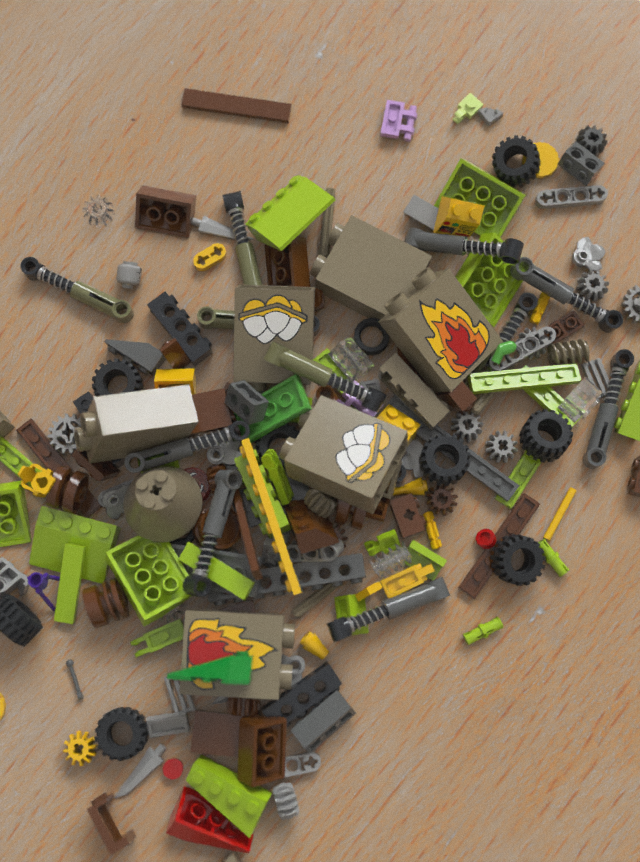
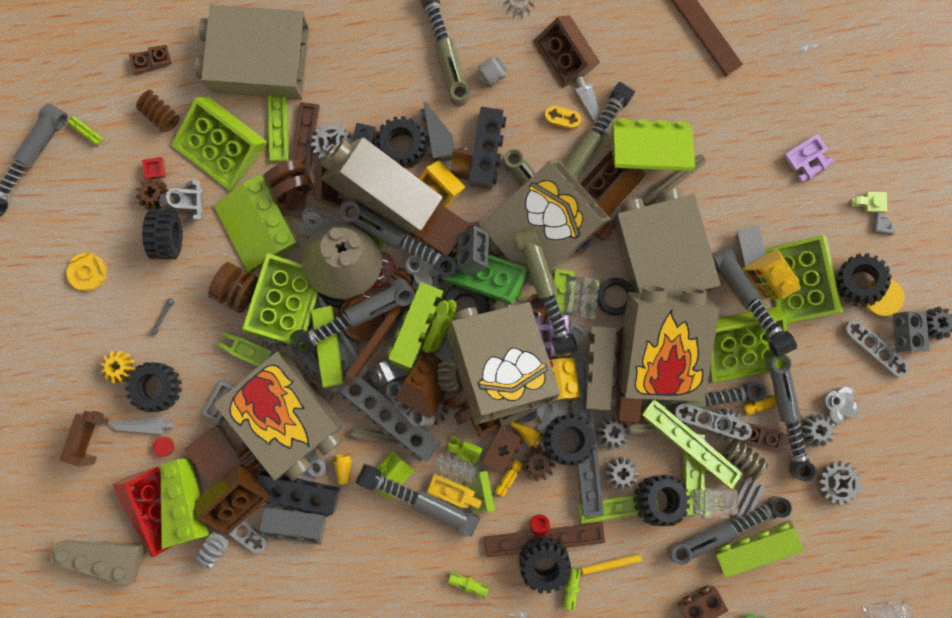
camera: 50 degrees right, 5 degrees up
(39, 583) = (204, 226): dark purple plant -> none
(40, 481) = (276, 155): yellow piece -> none
(69, 583) = (225, 247): lime tile -> none
(167, 724) = (190, 413): light grey tile -> none
(230, 669) = (261, 425): green wedge -> none
(272, 526) = (397, 357): yellow plate -> none
(368, 591) = (418, 472): yellow tile -> none
(503, 349) = (696, 407): bright green arm -> none

